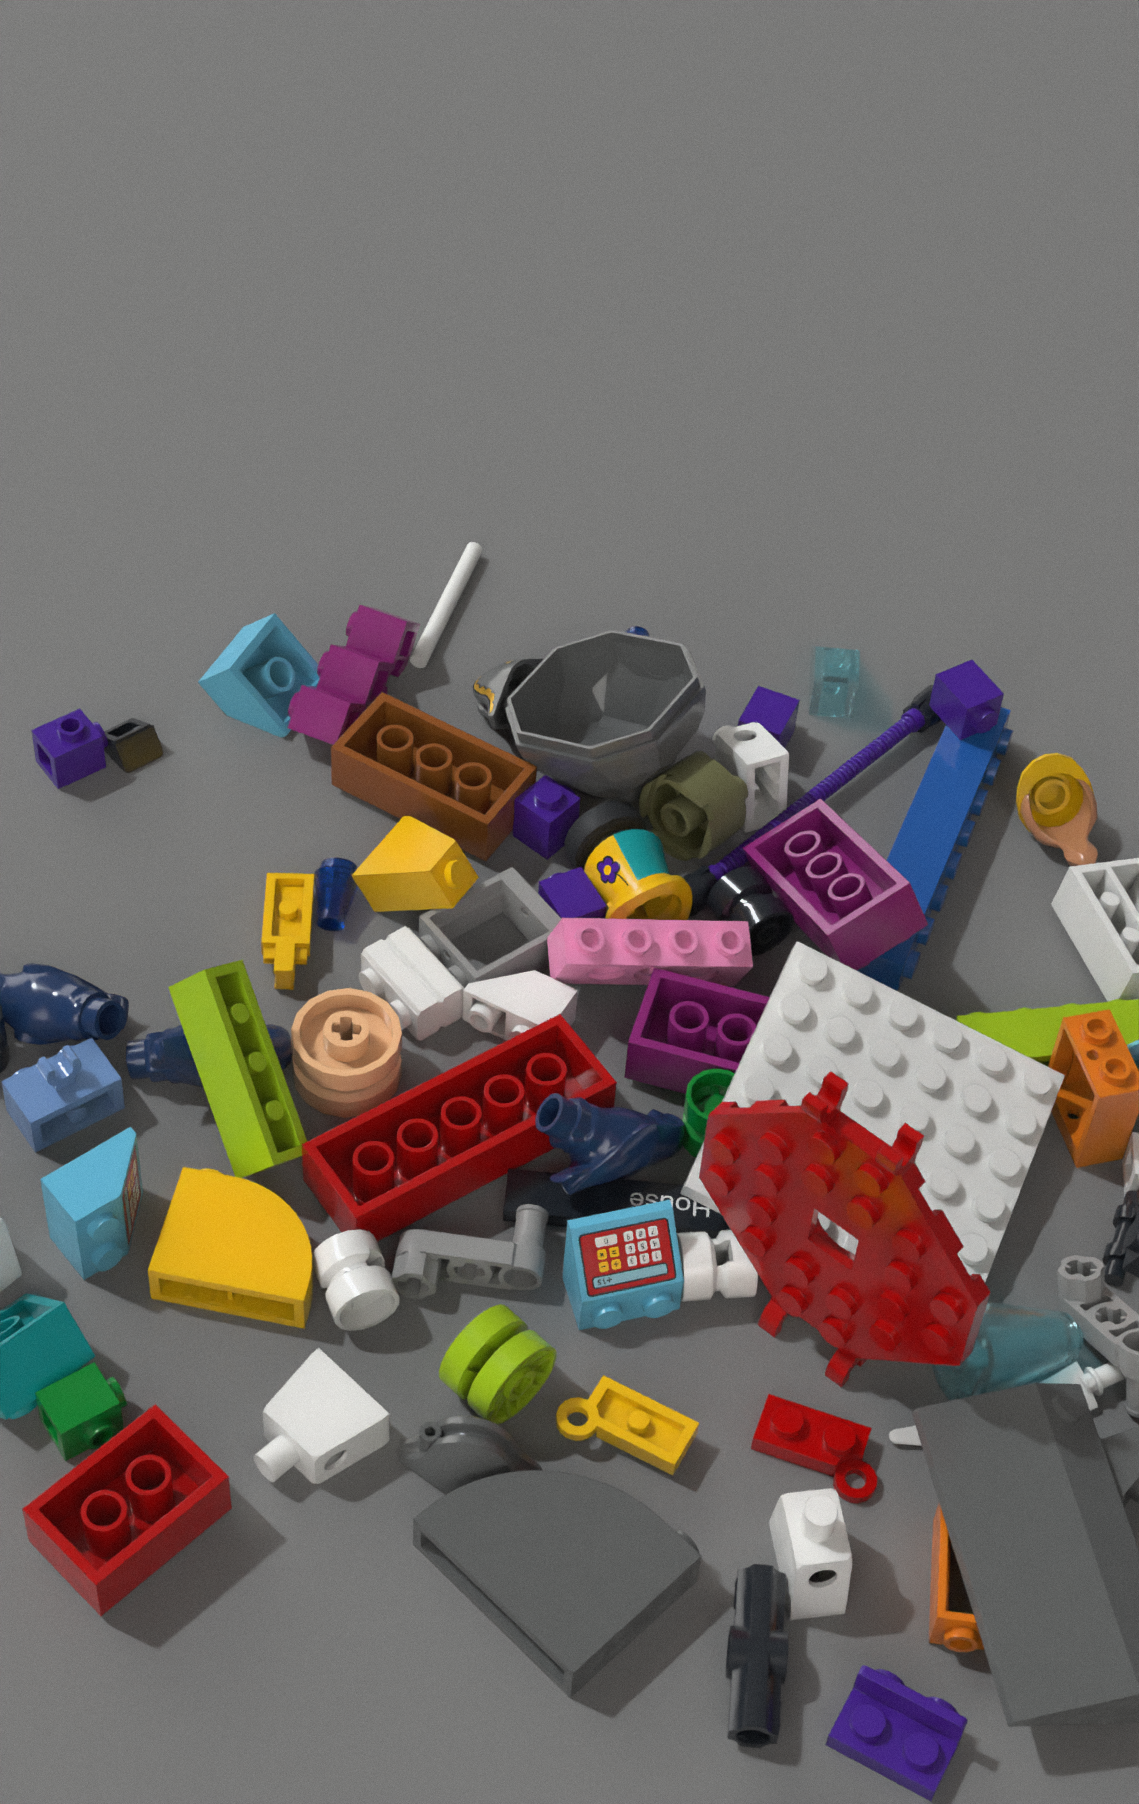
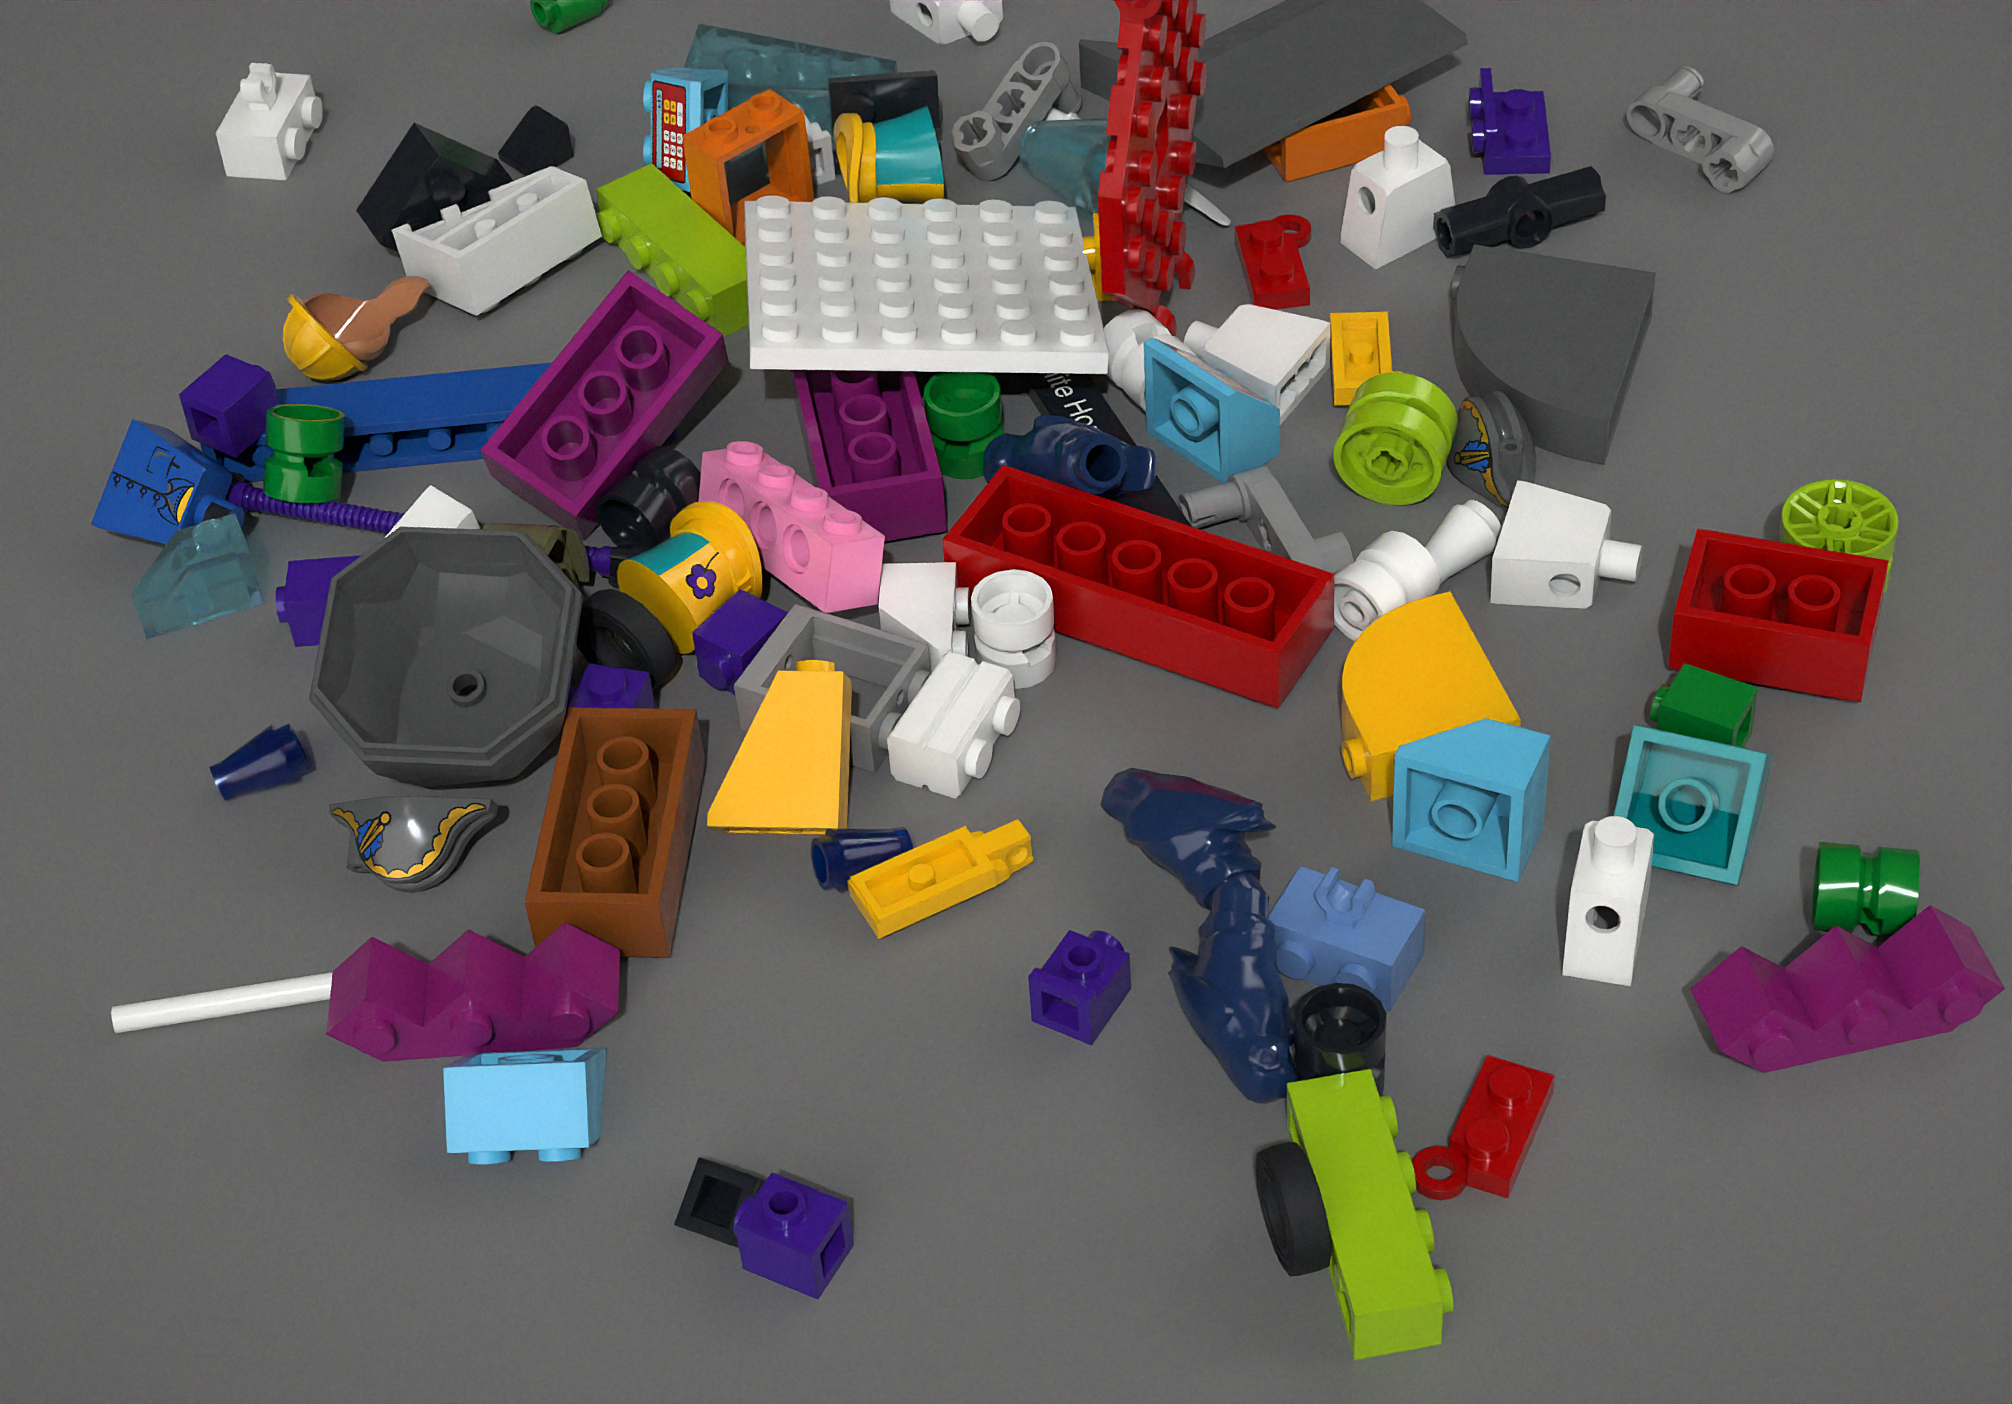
camera: 110 degrees left, 5 degrees down
(139, 948) = (1086, 973): none -> dark purple brick
(174, 1610) = (1841, 519): none -> lime wheel
(238, 1068) = (1231, 732): lime brick -> none
(346, 1052) = (1097, 714): light nougat wheel -> none
(378, 1367) = (1463, 538): none -> white cone
(467, 1031) = (1015, 625): none -> white wheel
(674, 1345) = (1266, 352): none -> white torso
(907, 735) = (303, 454): none -> green wheel
(910, 666) = (162, 486): none -> blue torso
(1077, 1200) = (890, 158): none -> hat

